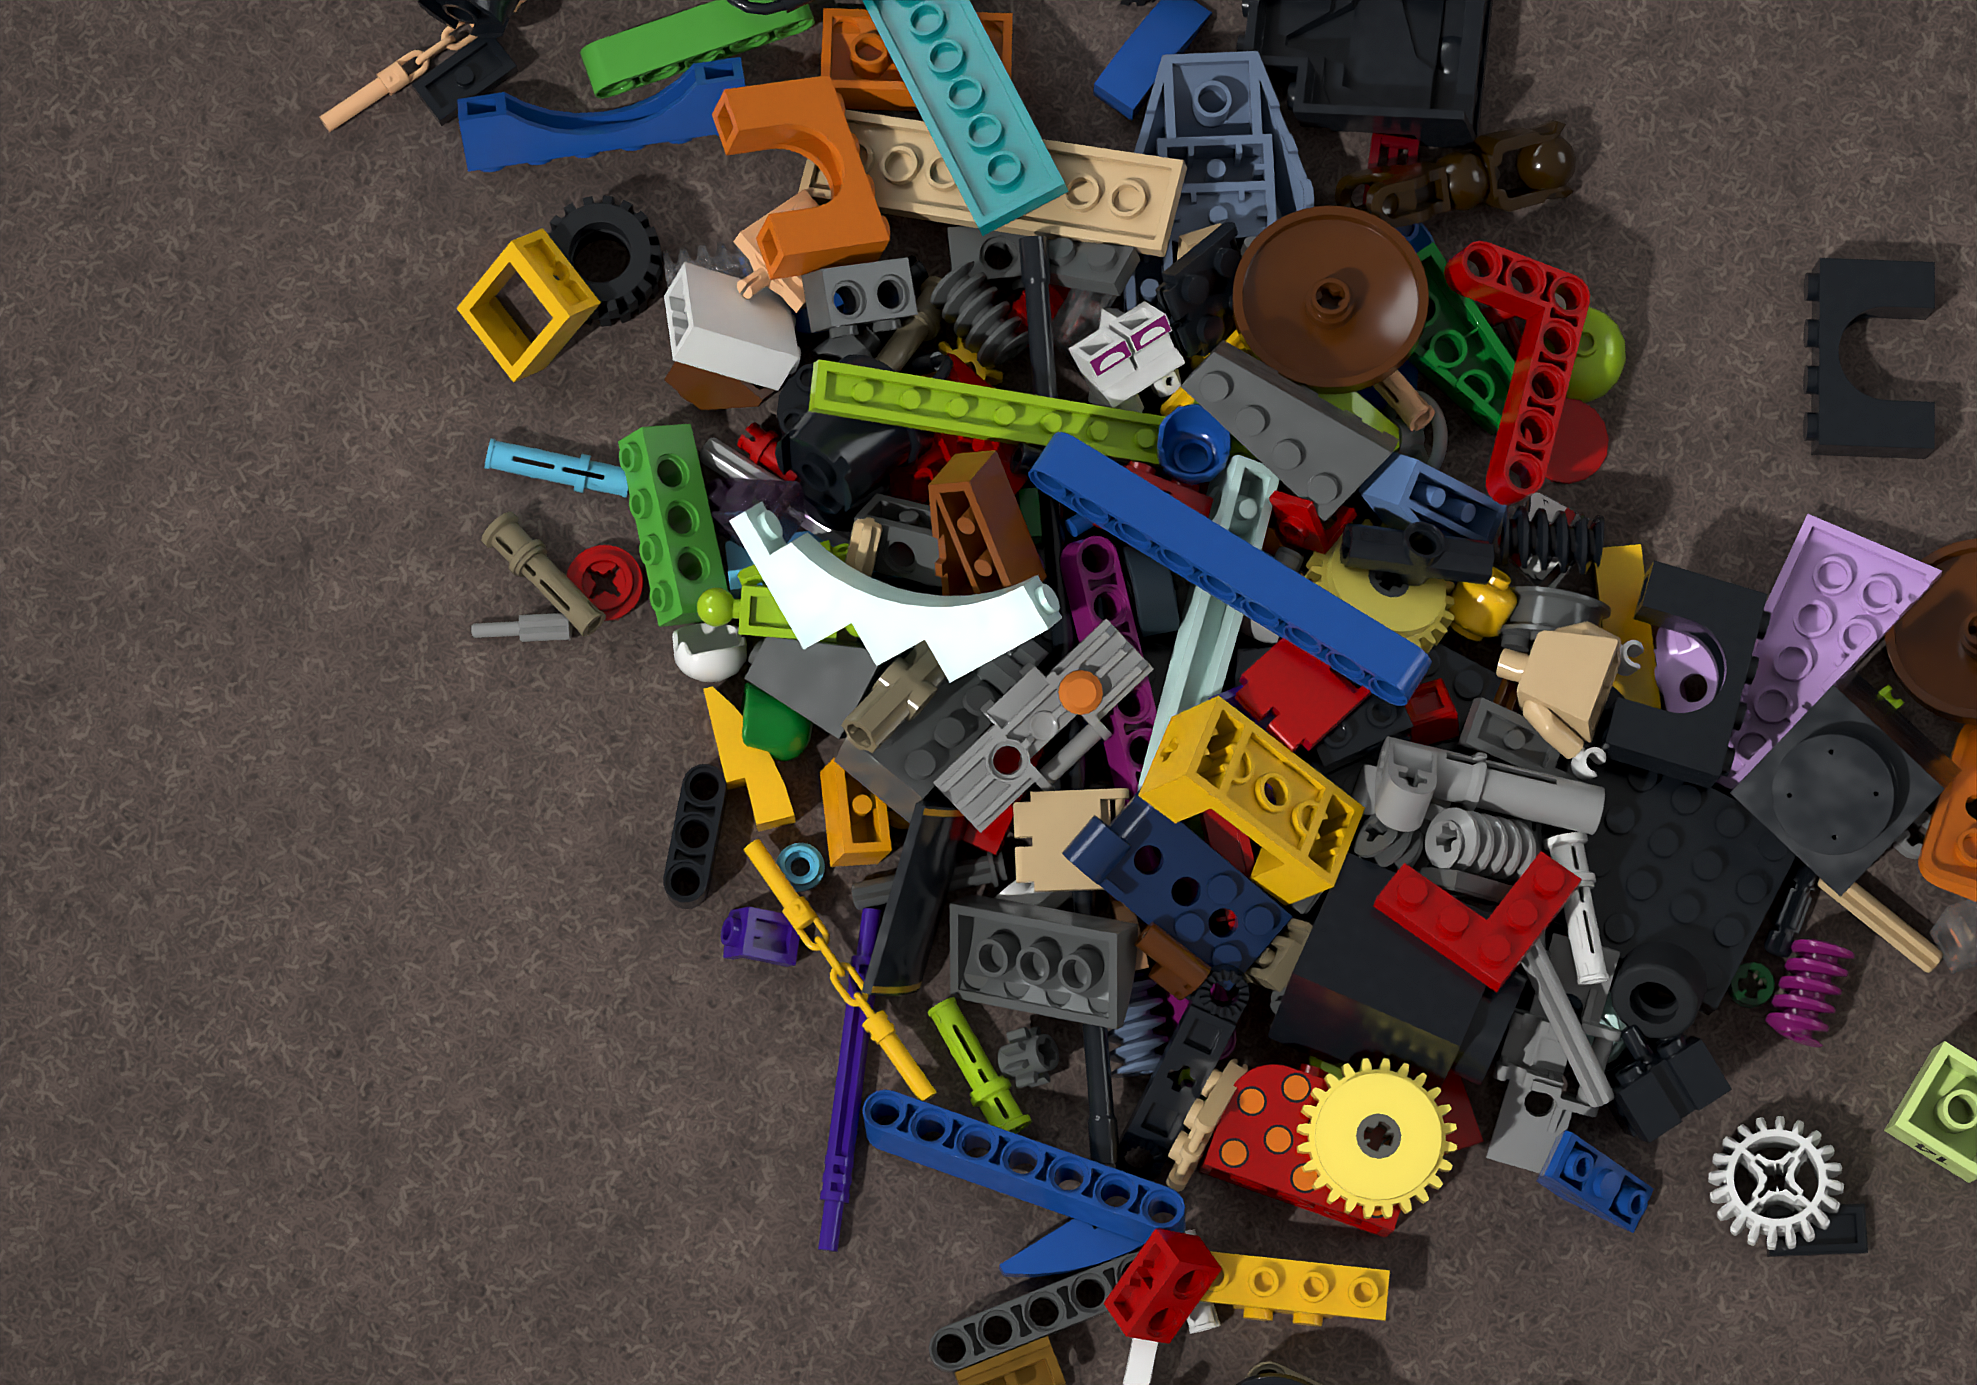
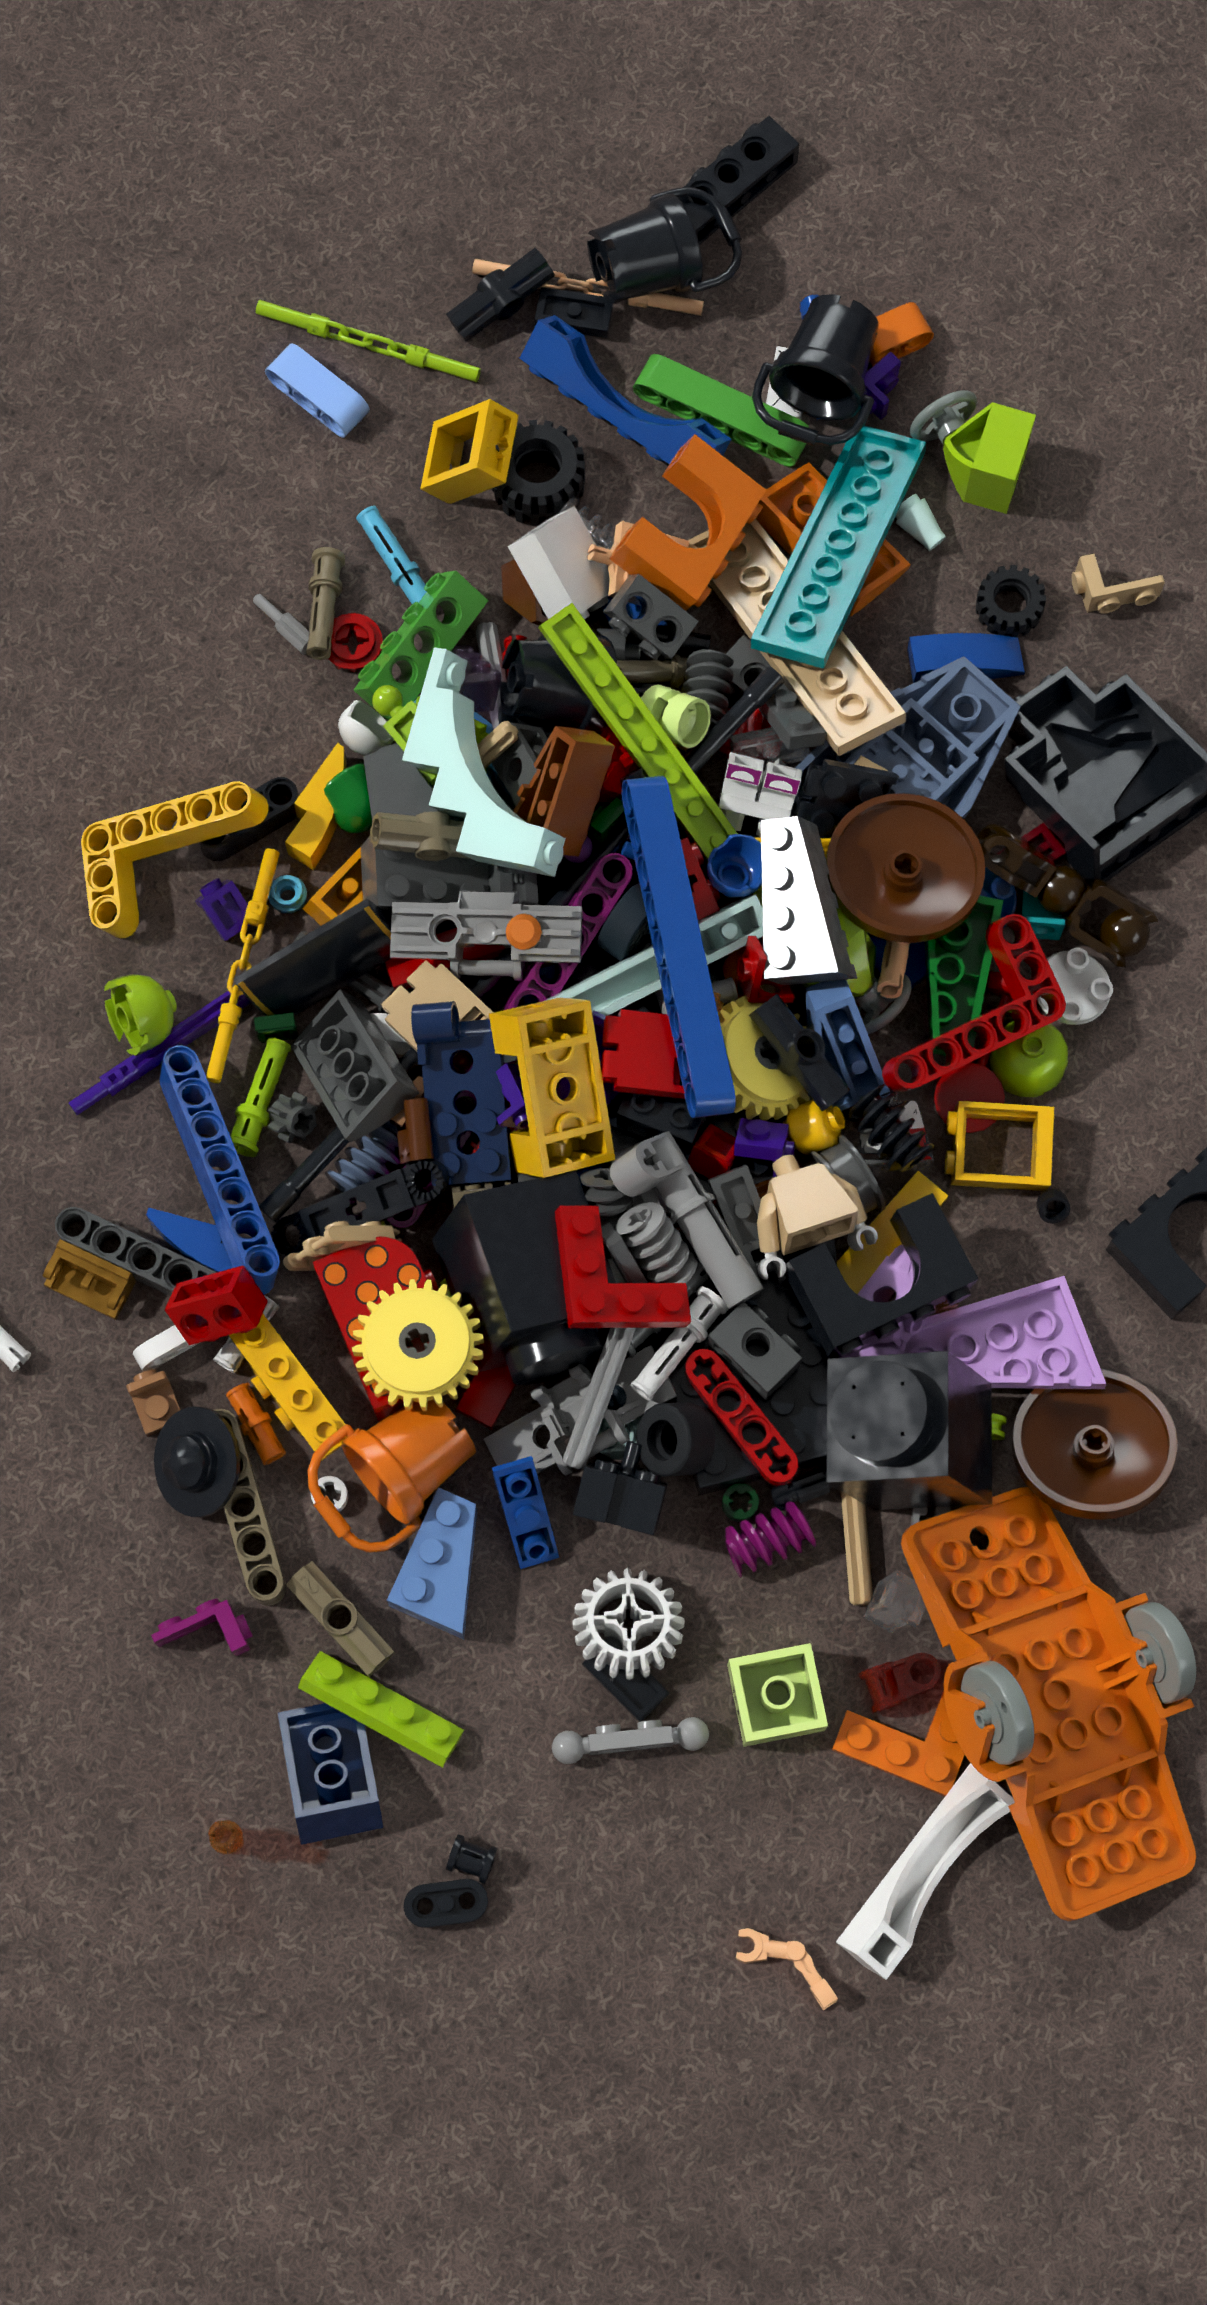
camera: 50 degrees right, 5 degrees down
(247, 321) = (415, 355): none -> lime piece
(315, 384) = (317, 390): none -> light blue beam
(385, 128) = (500, 294): none -> black piece
(642, 937) = (156, 838): none -> yellow beam
(796, 1103) = (140, 1011): none -> lime cylinder
(926, 994) = (276, 1026): none -> dark green tile
(997, 362) = (679, 714): none -> yellowish green wheel
(1225, 838) = (511, 1088): none -> dark purple bracket
(1286, 1348) = (255, 1423): none -> orange pin
(1412, 1326) = (339, 1487): none -> white bush
(1453, 1254) = (398, 1463): none -> orange piece
(1463, 227) = (1044, 924): none -> teal bracket
(1463, 660) = (763, 1140): none -> dark purple bracket
(1555, 241) = (1082, 984): none -> white dish
(1572, 1301) = (438, 1566): none -> medium blue wedge
(1620, 860) = (762, 1373): none -> dark grey brick
(1676, 425) = (1041, 1144): none -> yellow window
(1691, 920) = (736, 1420): none -> red beam
(1739, 455) = (1061, 1206): none -> black hinge
(1837, 1333) = (570, 1747): none -> light grey plate

